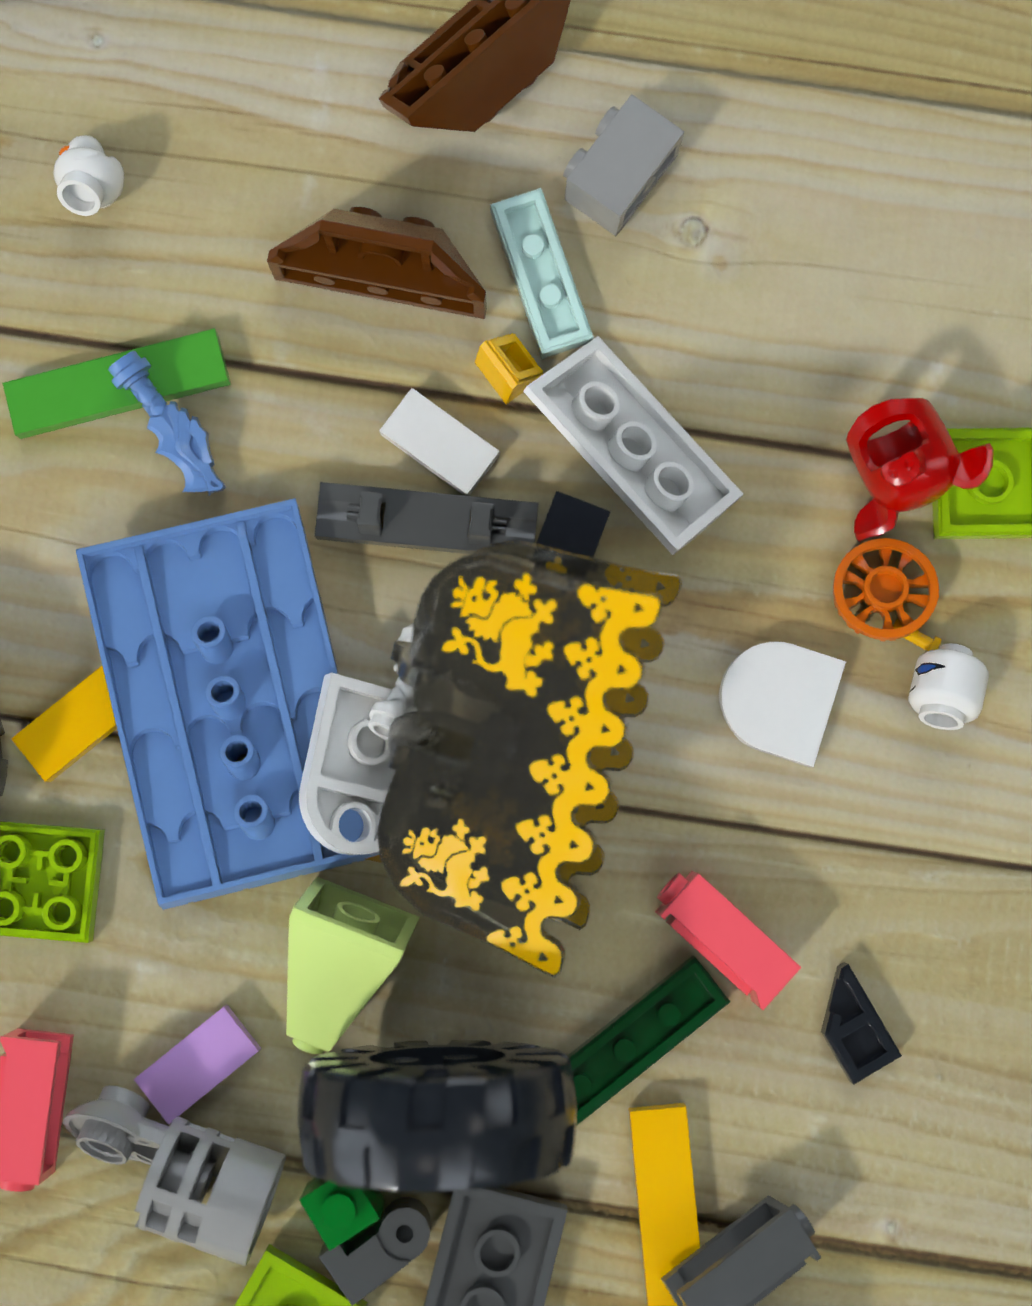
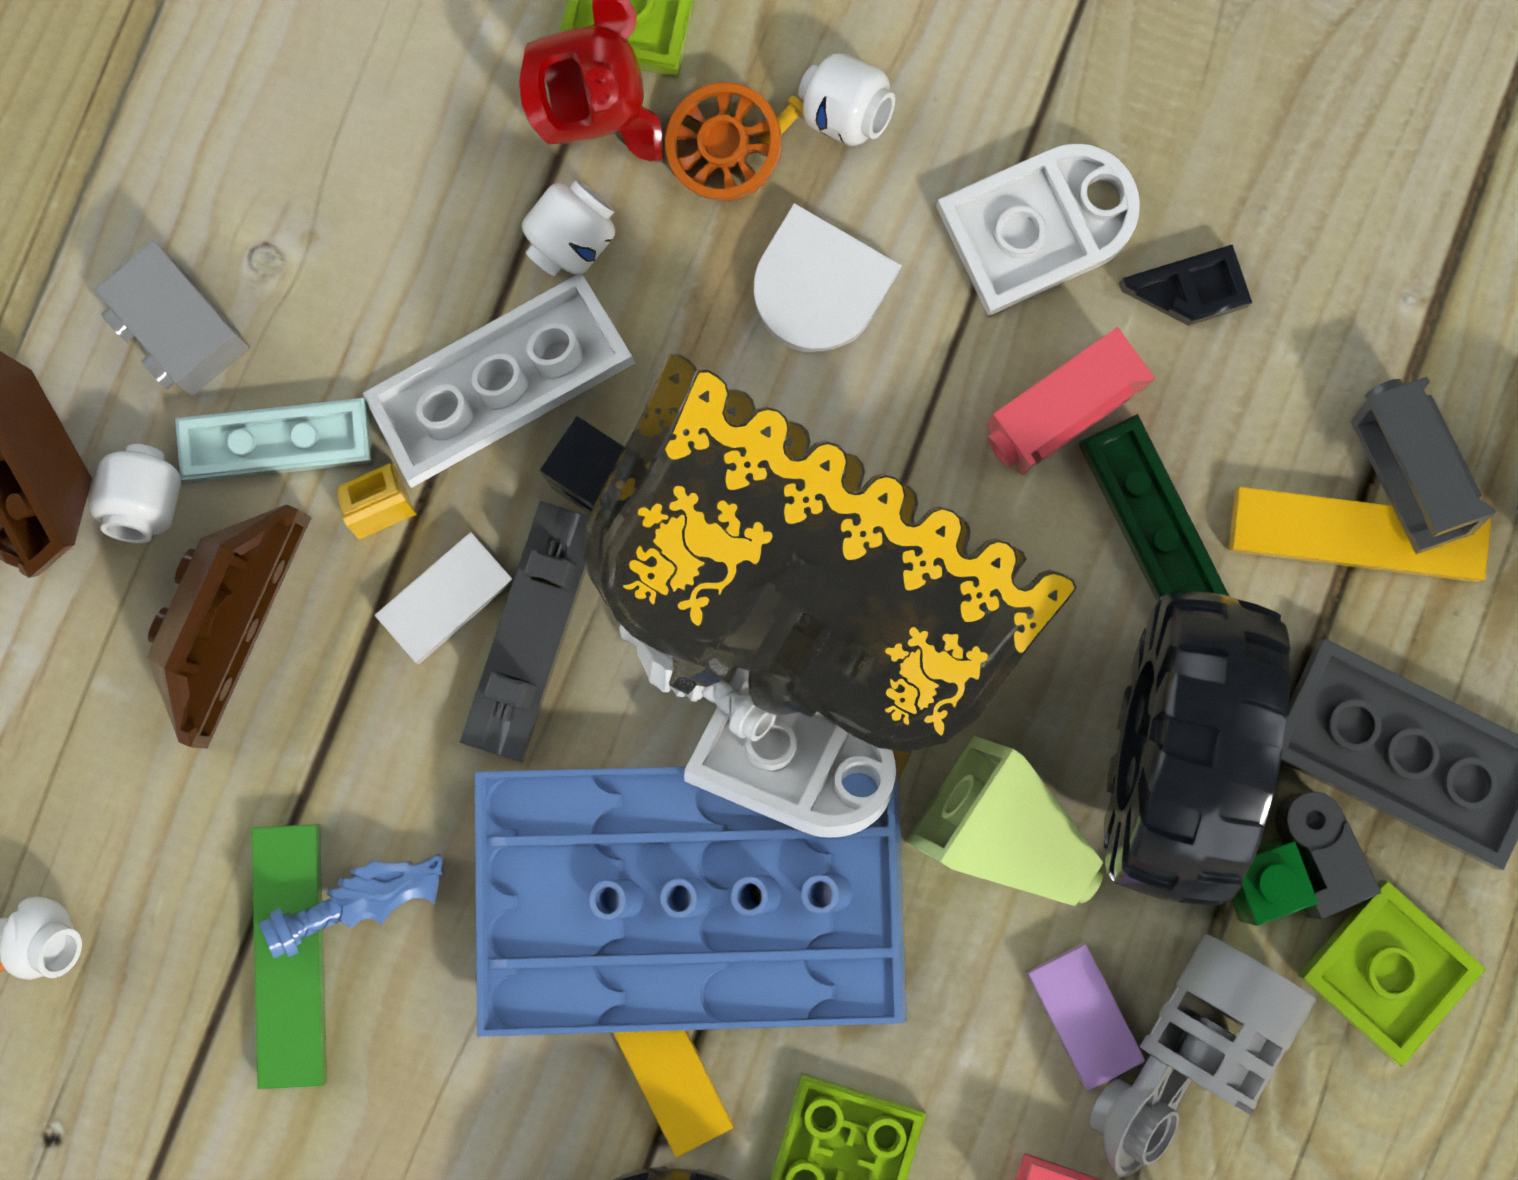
camera: 75 degrees left, 0 degrees up
(469, 169) = (135, 494): none -> white head
(777, 473) = (568, 228): none -> white head
(878, 879) = (1037, 225): none -> white tile

